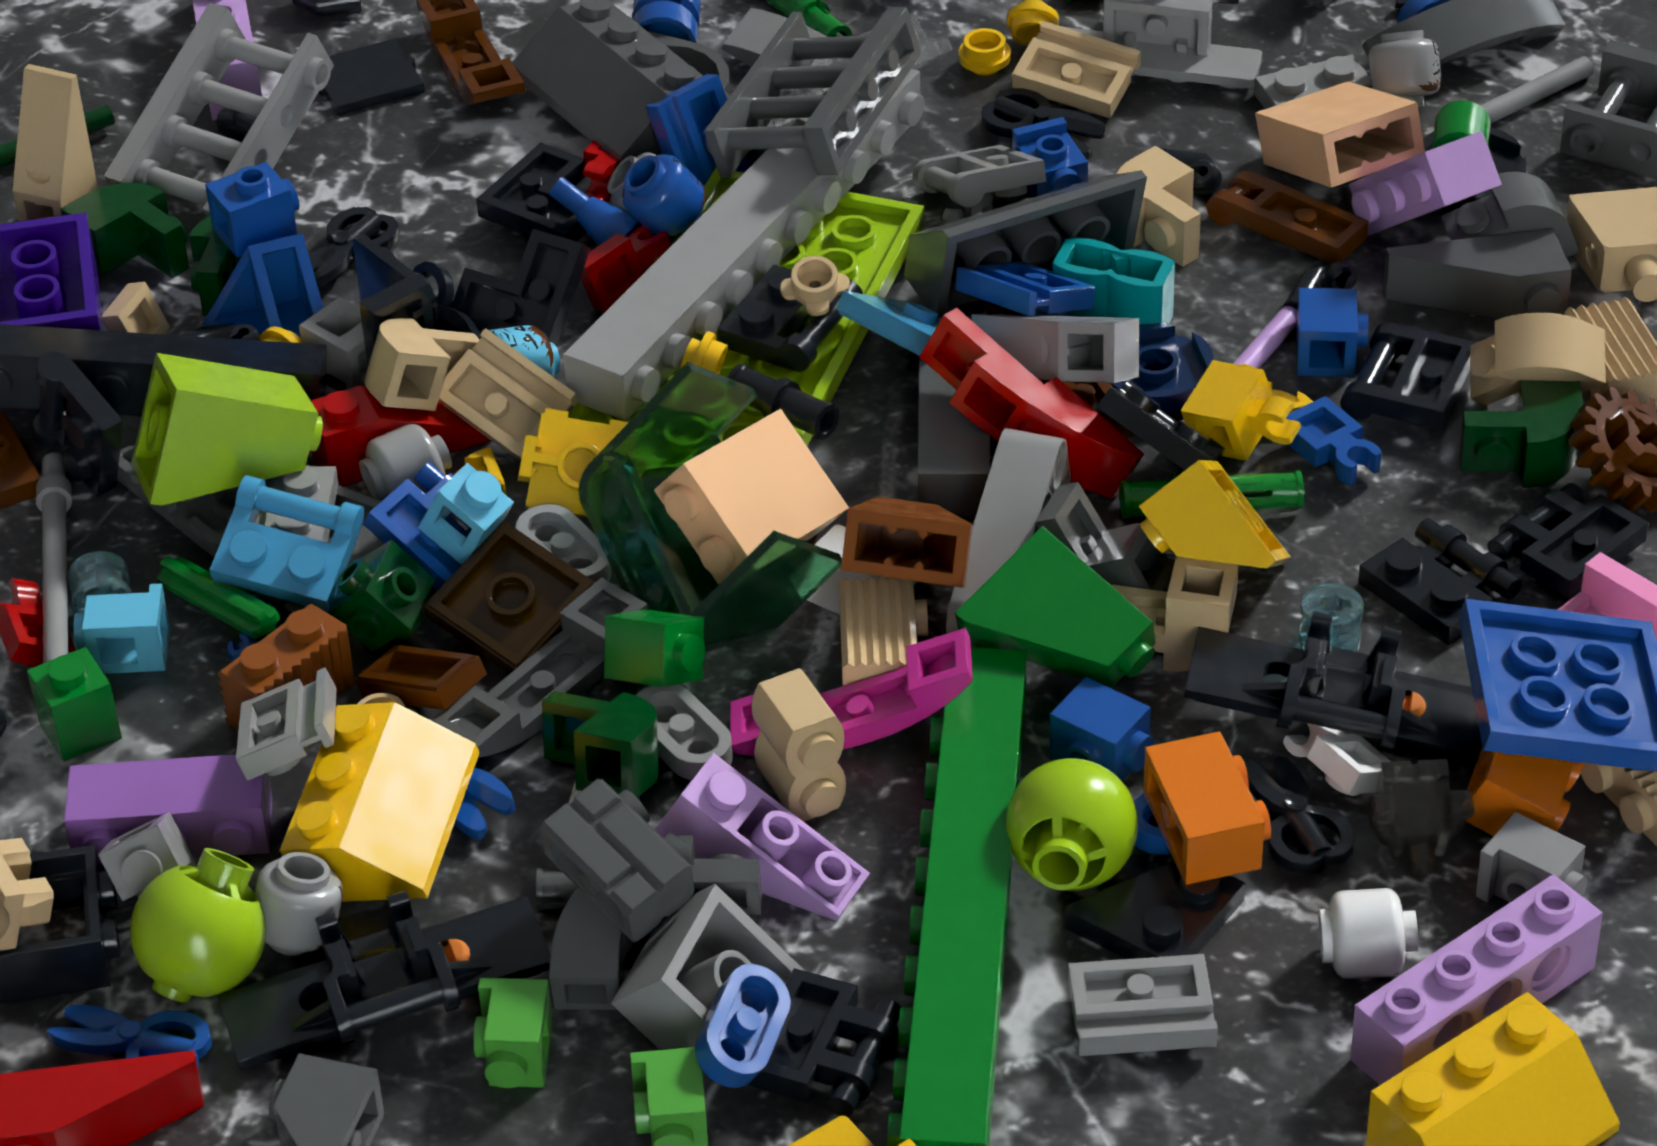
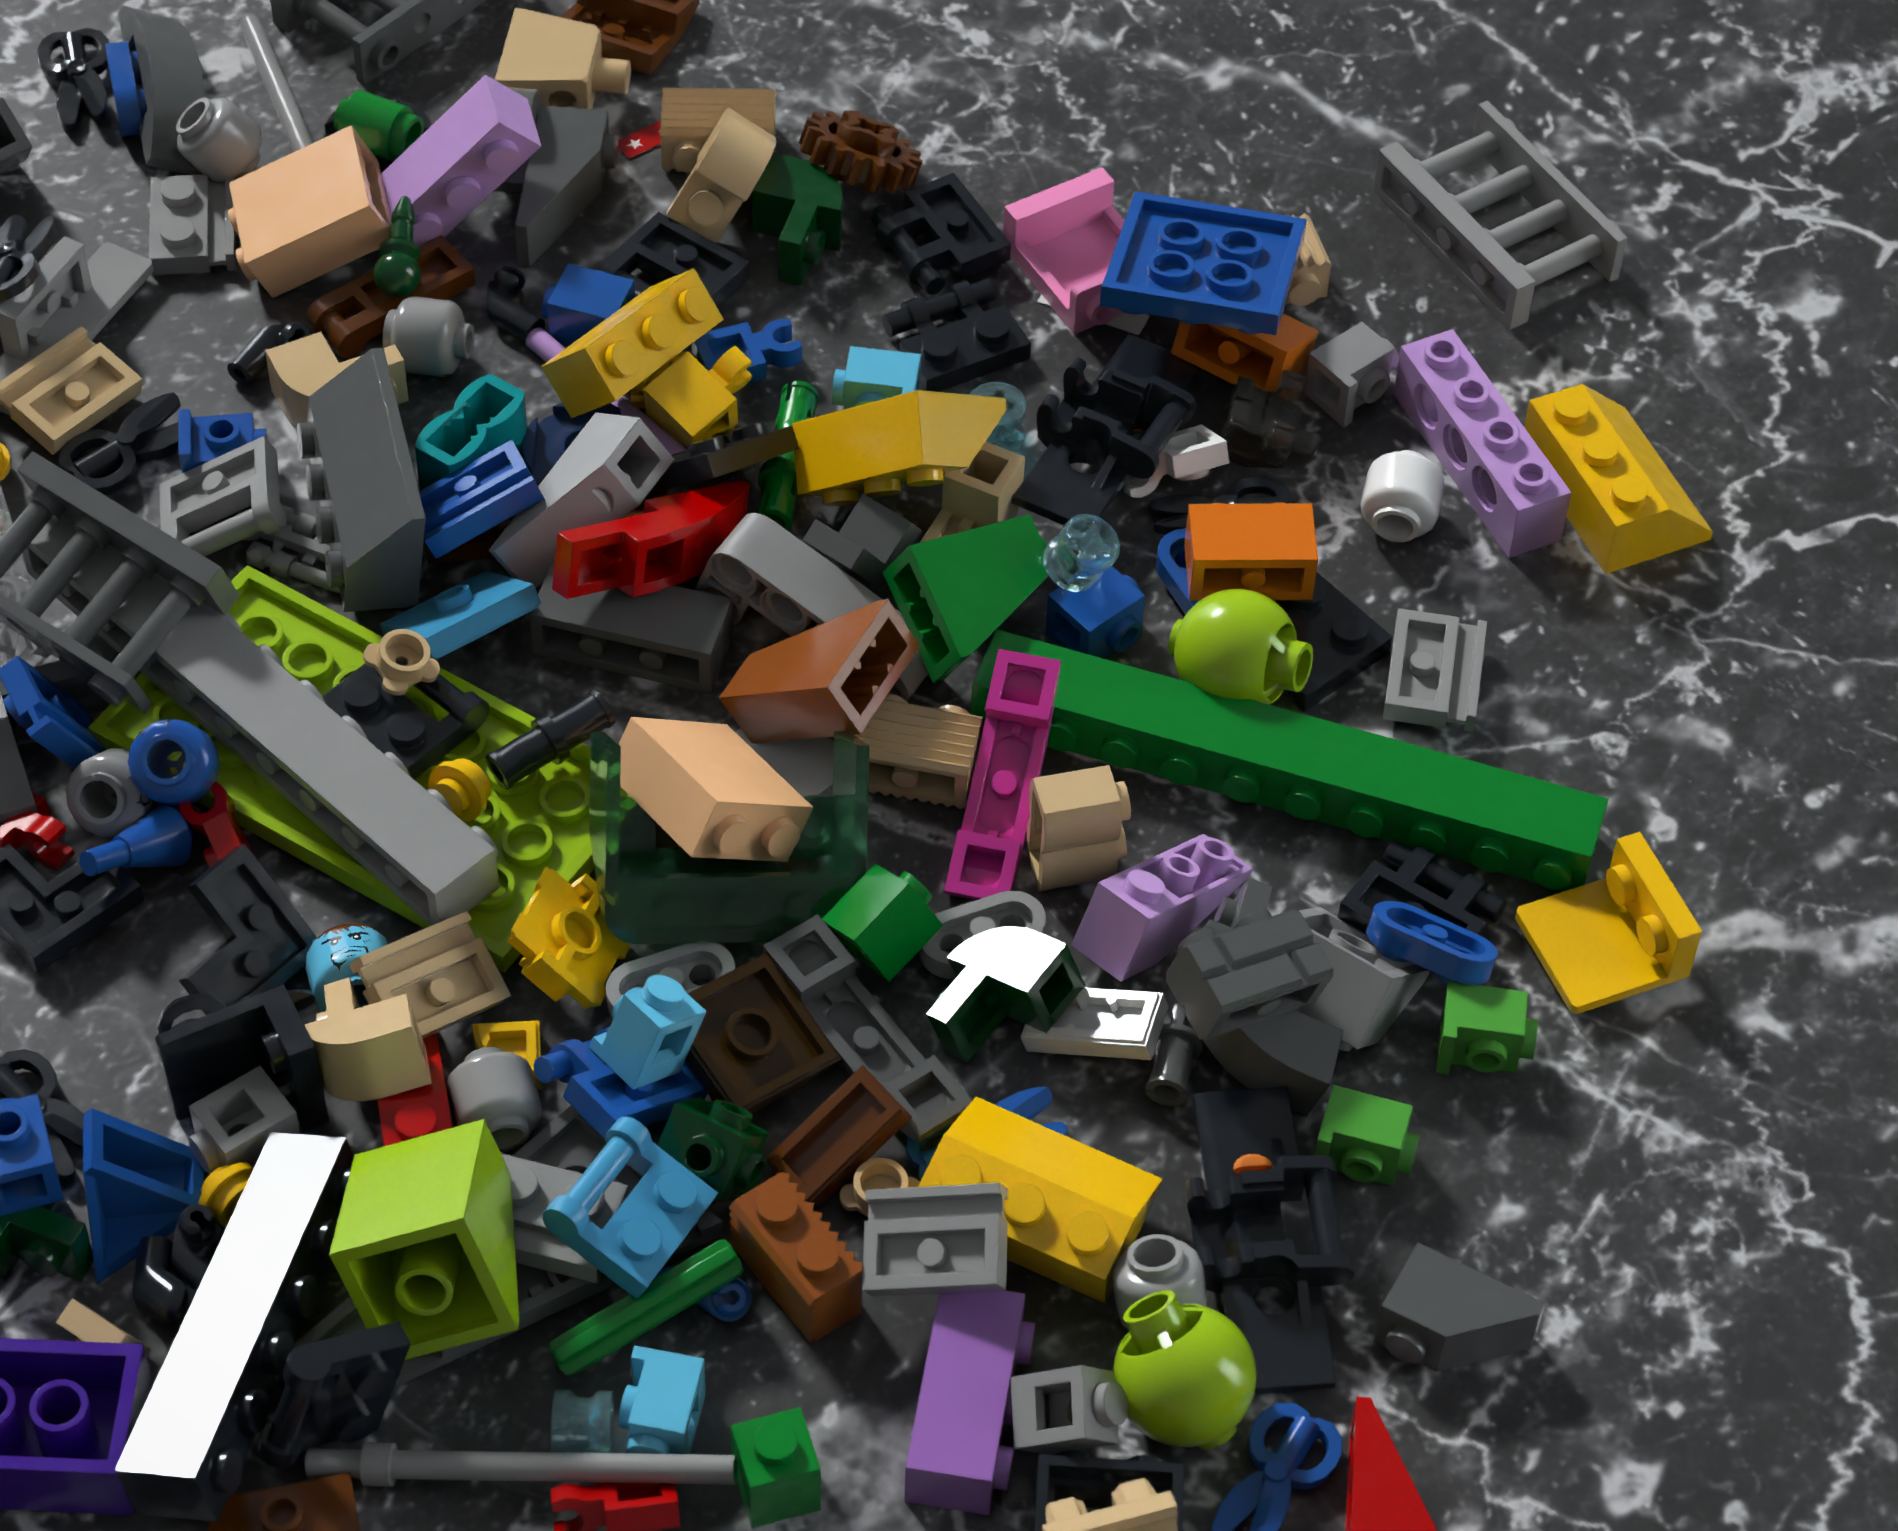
camera: 80 degrees left, 10 degrees up
(1118, 652) = (1097, 551): none -> clear light blue wheel
(1237, 236) = (429, 335): none -> light grey head
(1266, 340) = (632, 343): none -> yellow brick
(1289, 193) = (397, 268): none -> dark green bar
(1325, 535) = (875, 376): none -> medium azure brick

